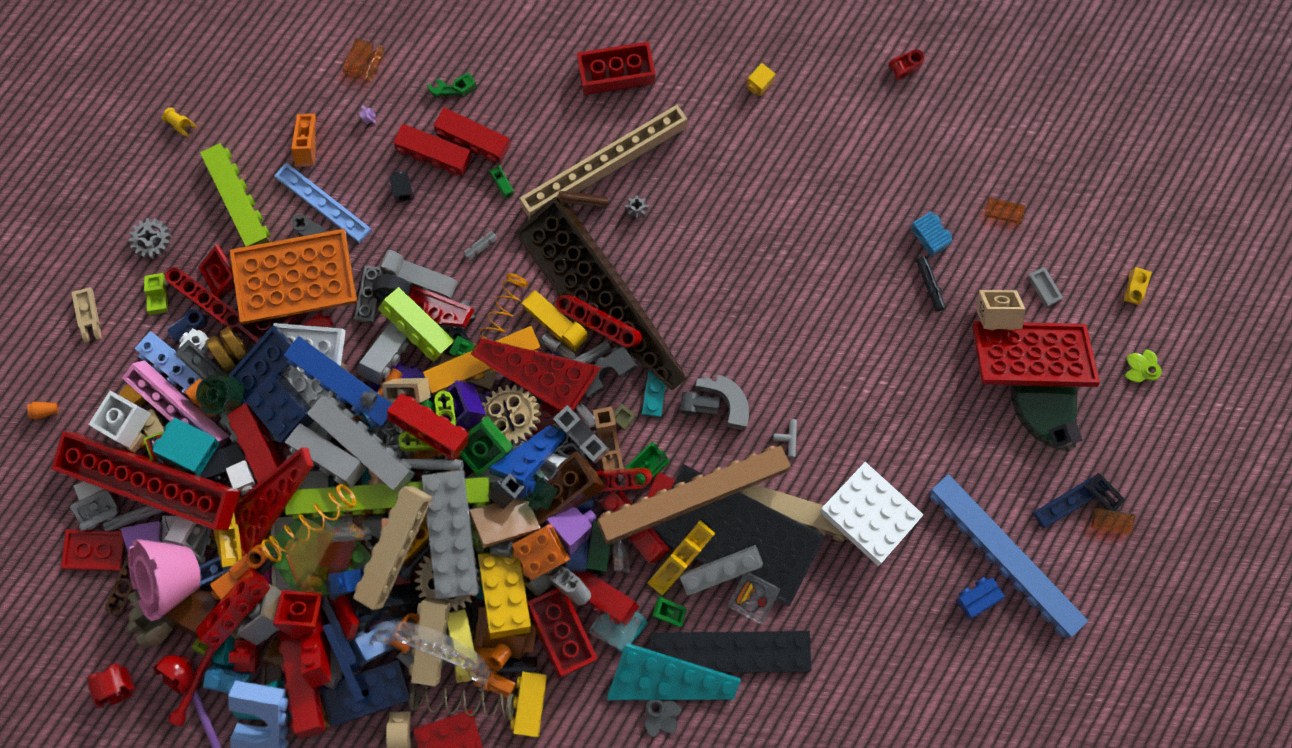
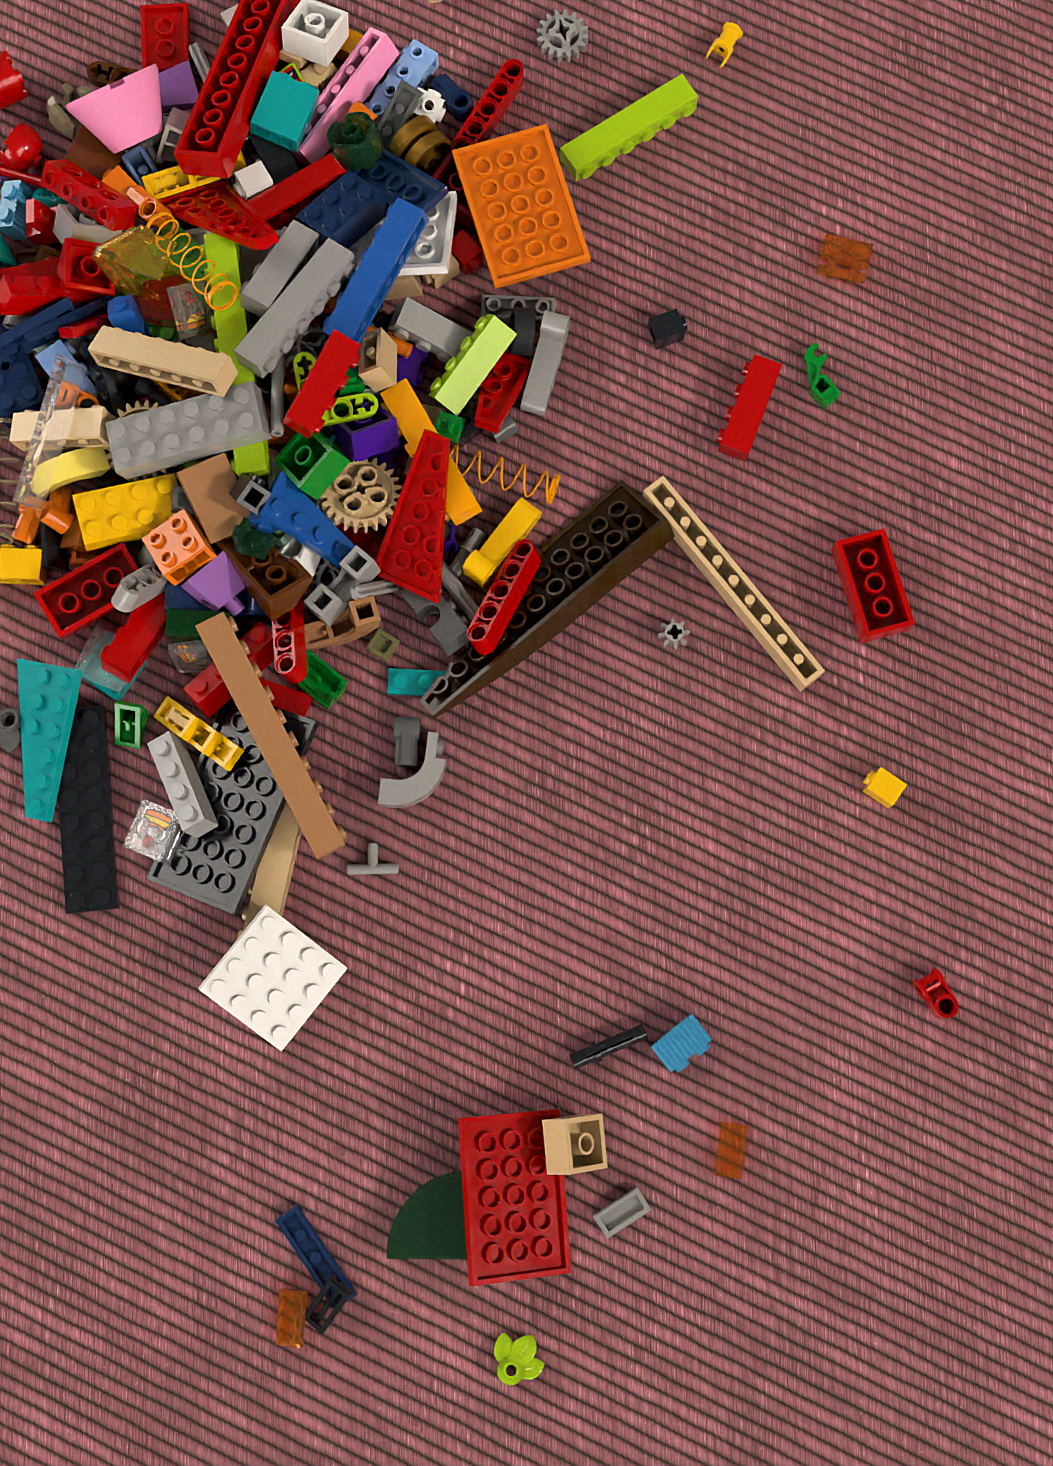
camera: 90 degrees right, 5 degrees up
(95, 509) = (208, 27): light grey bracket -> none
(156, 294) = (490, 57): lime slope -> none
(218, 272) = (529, 116): red slope -> none
(304, 140) = (717, 199): orange slope -> none
(309, 228) = (594, 224): dark grey piece -> none
(322, 203) = (635, 236): light blue tile -> none
(367, 115) = (763, 273): lavender plate -> none
(369, 399) = (350, 308): dark grey plate -> none
(432, 150) = (724, 360): red brick -> none
(480, 245) = (598, 438): light grey axle -> none
(502, 182) = (689, 457): green bar -> none
(583, 199) = (673, 560): reddish brown axle -> none
(979, 598) = (173, 1132): blue brick -> none
(1008, 557) = (230, 1169): medium blue brick -> none
(1065, 435) = (395, 1240): black brick -> none
(1137, 285) = (634, 1347): yellow leg -> none

